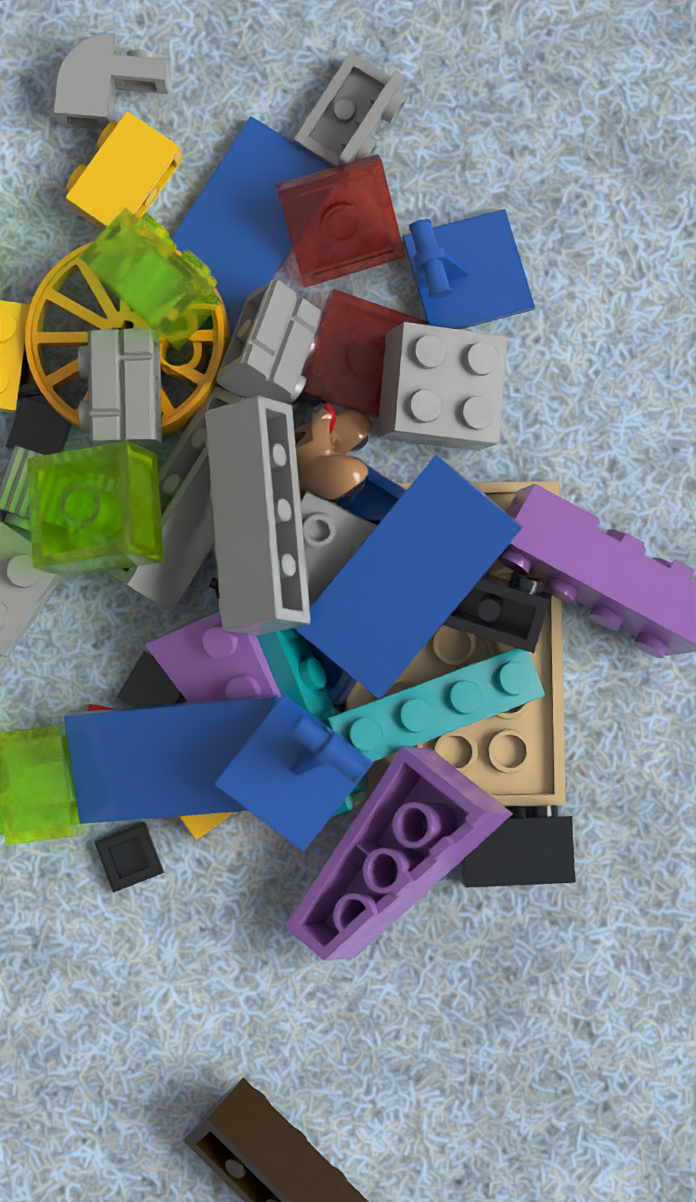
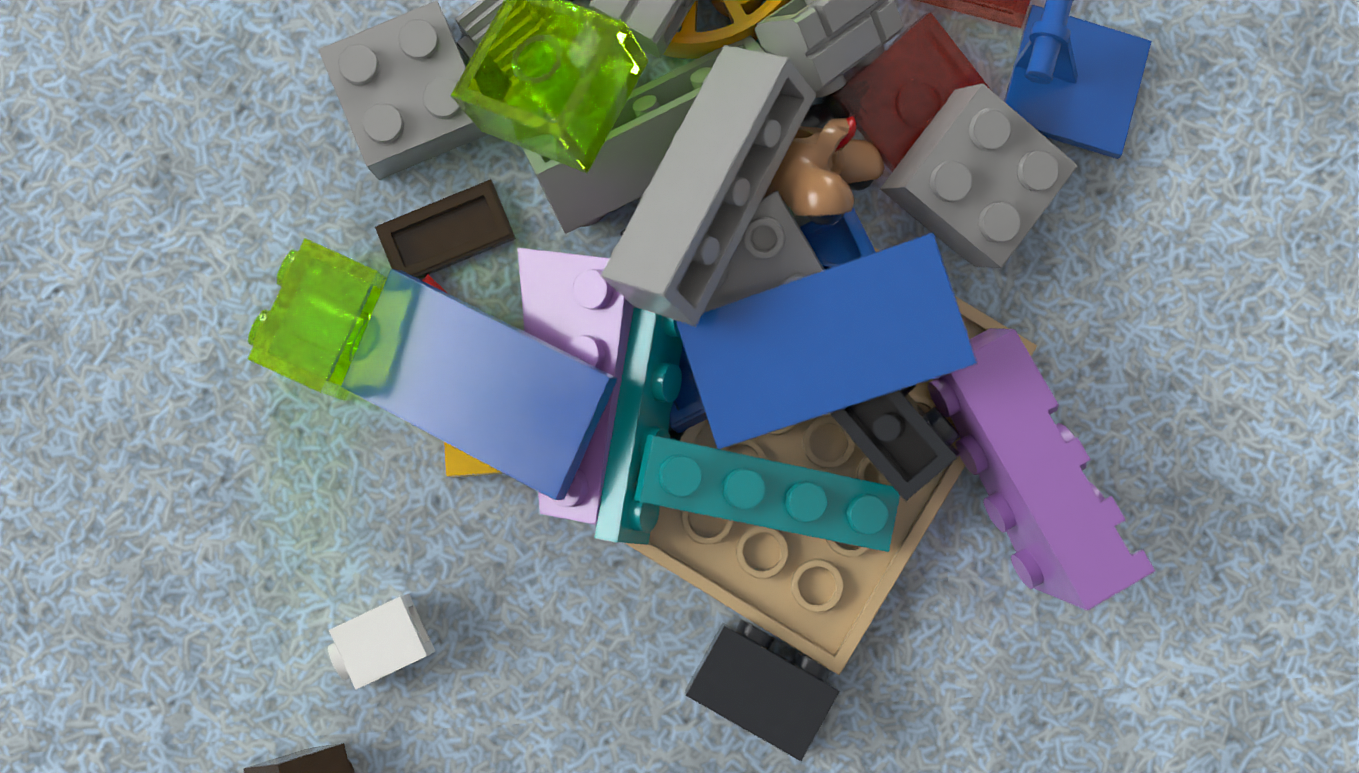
camera: 35 degrees right, 0 degrees up
(82, 664) = (446, 231): none -> dark brown tile
(129, 857) = (372, 451): black tile -> none
(148, 684) = (497, 292): black tile -> none
(222, 990) = (379, 642): none -> white brick
(293, 772) = (582, 467): blue plate -> none
(394, 852) = (639, 613): medium lavender wedge -> none

